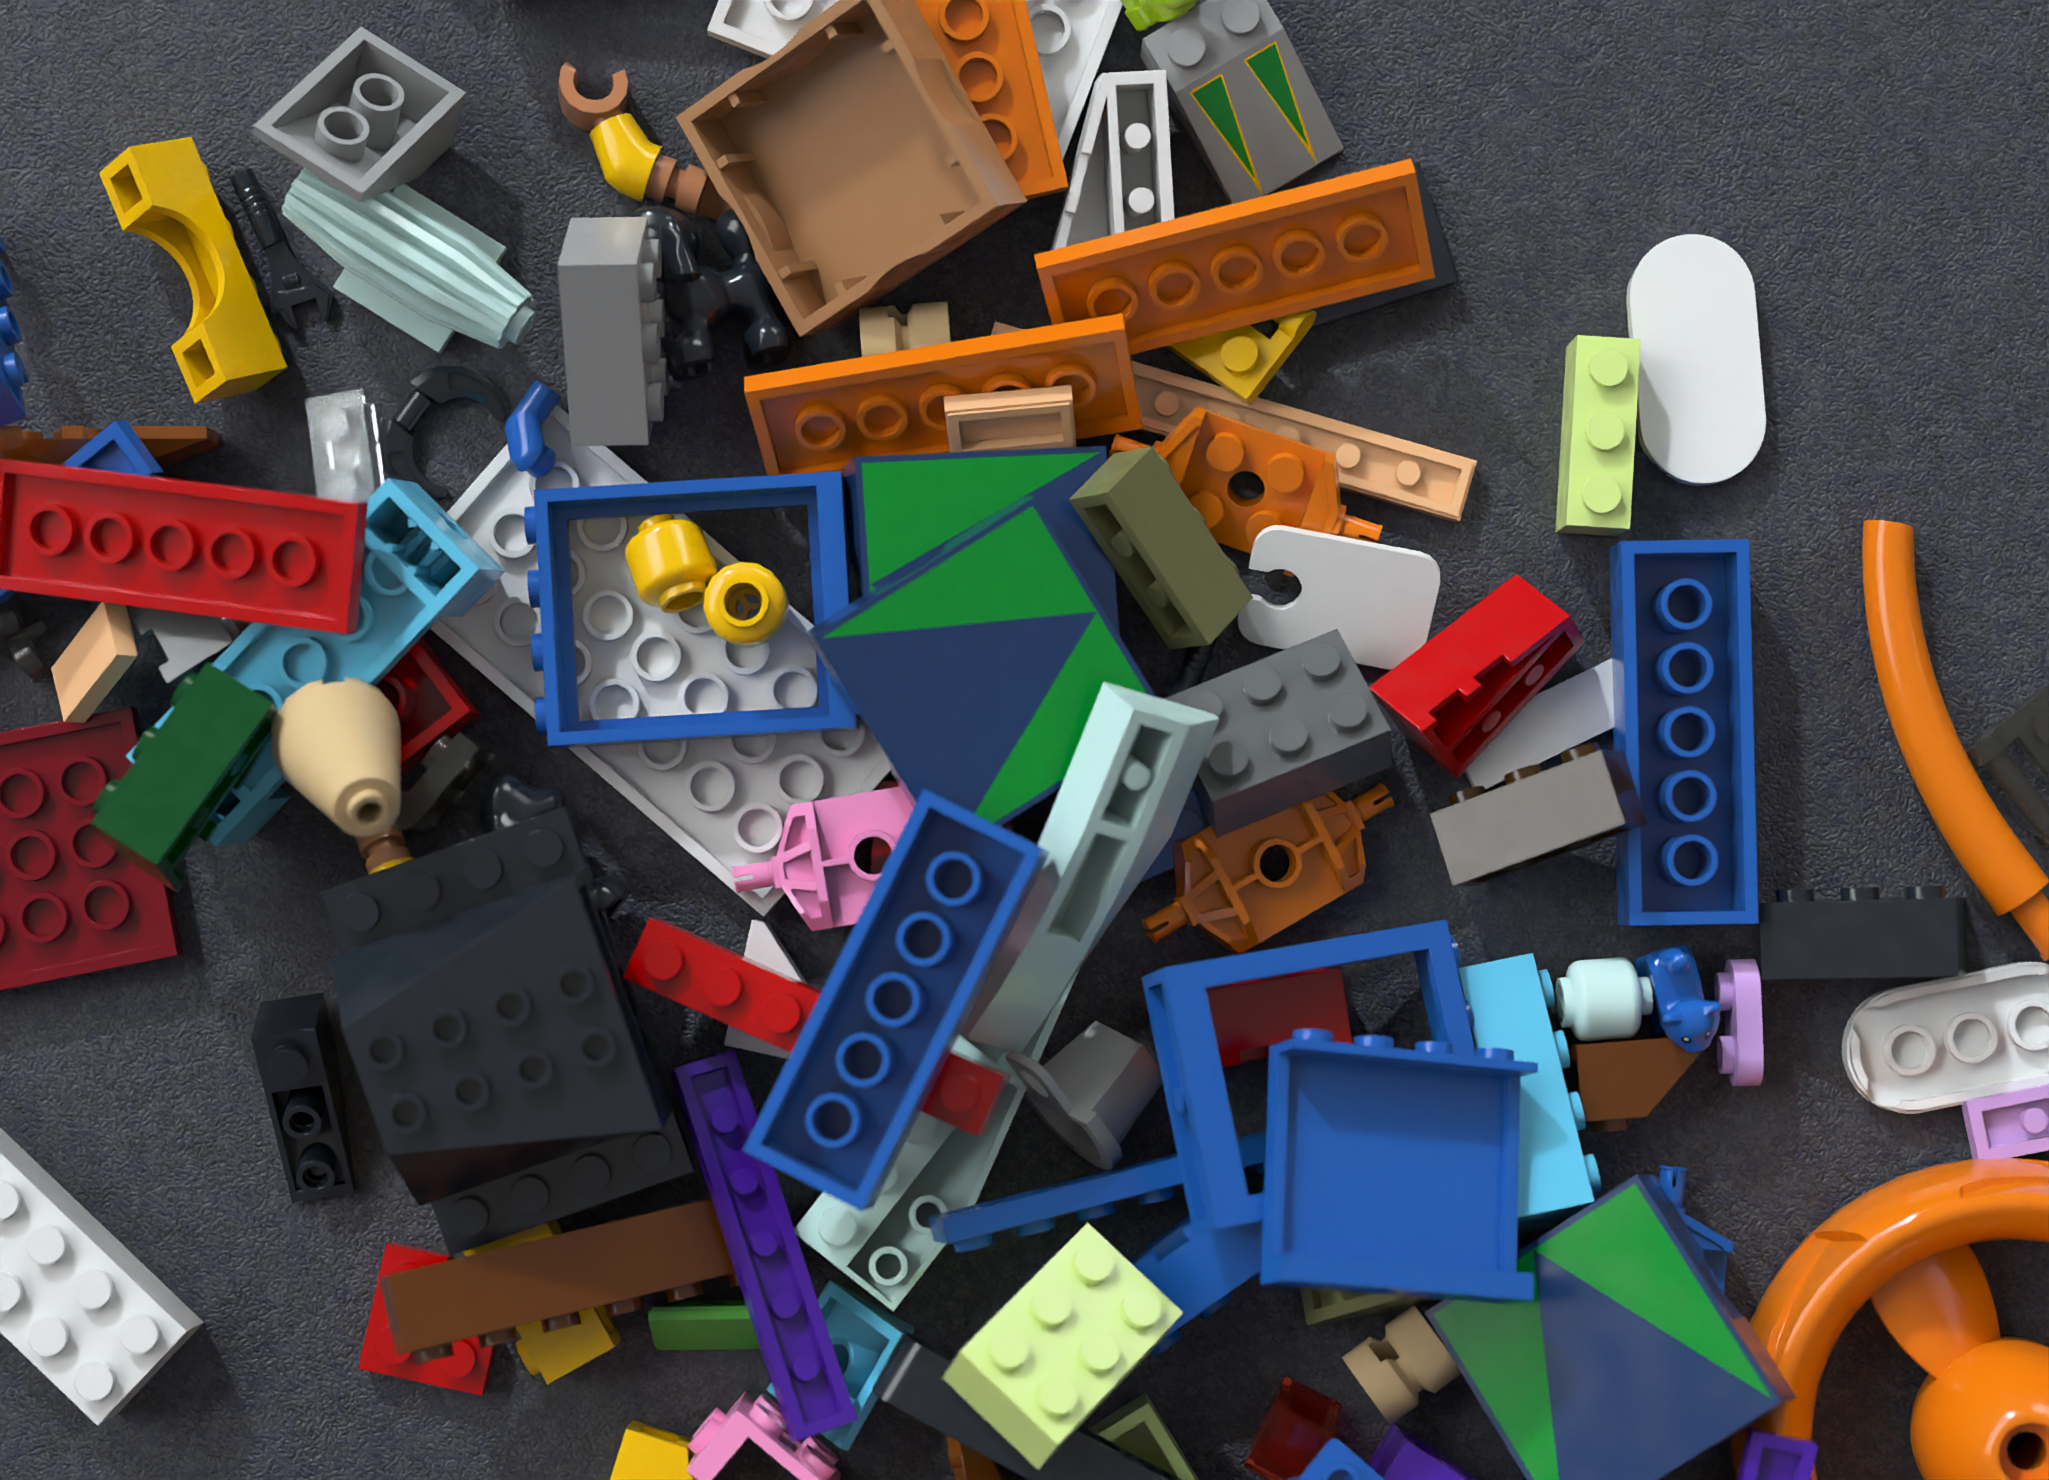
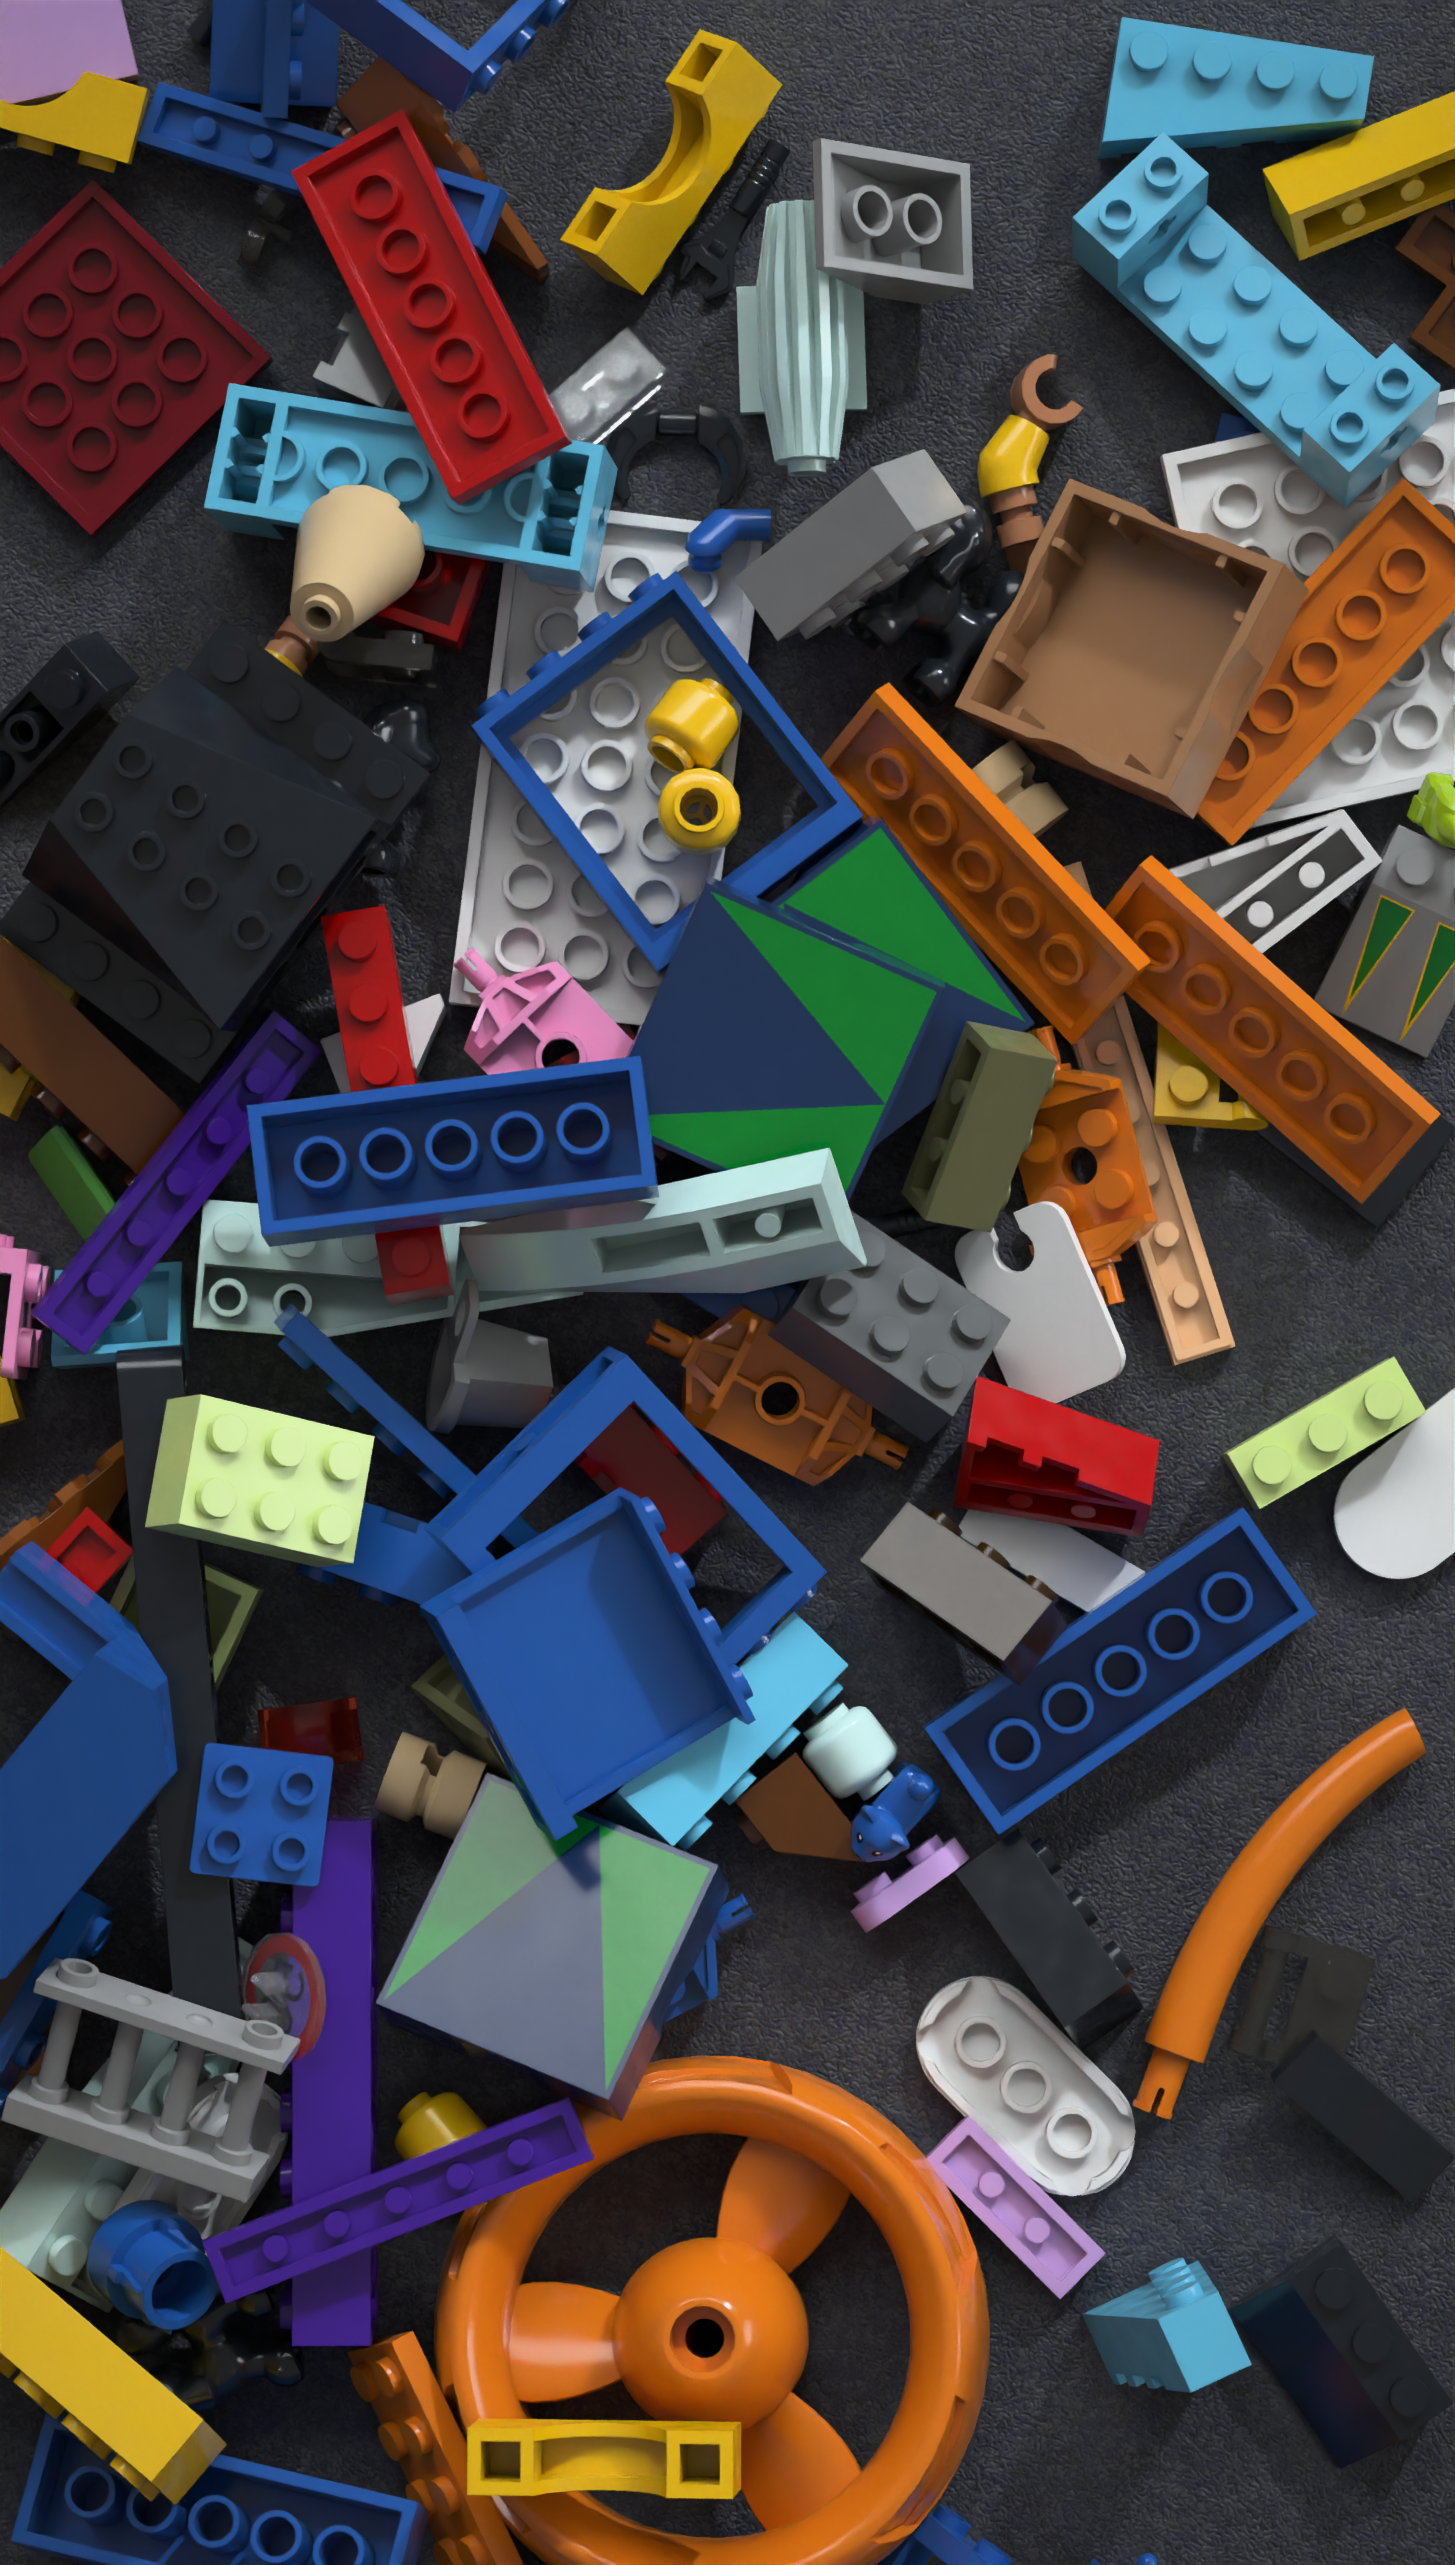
camera: 55 degrees right, 0 degrees up
(94, 662) = (288, 303): light nougat tile -> none
(184, 773) = (248, 443): dark green wedge -> none
(1011, 420) = (1002, 929): light nougat tile -> none

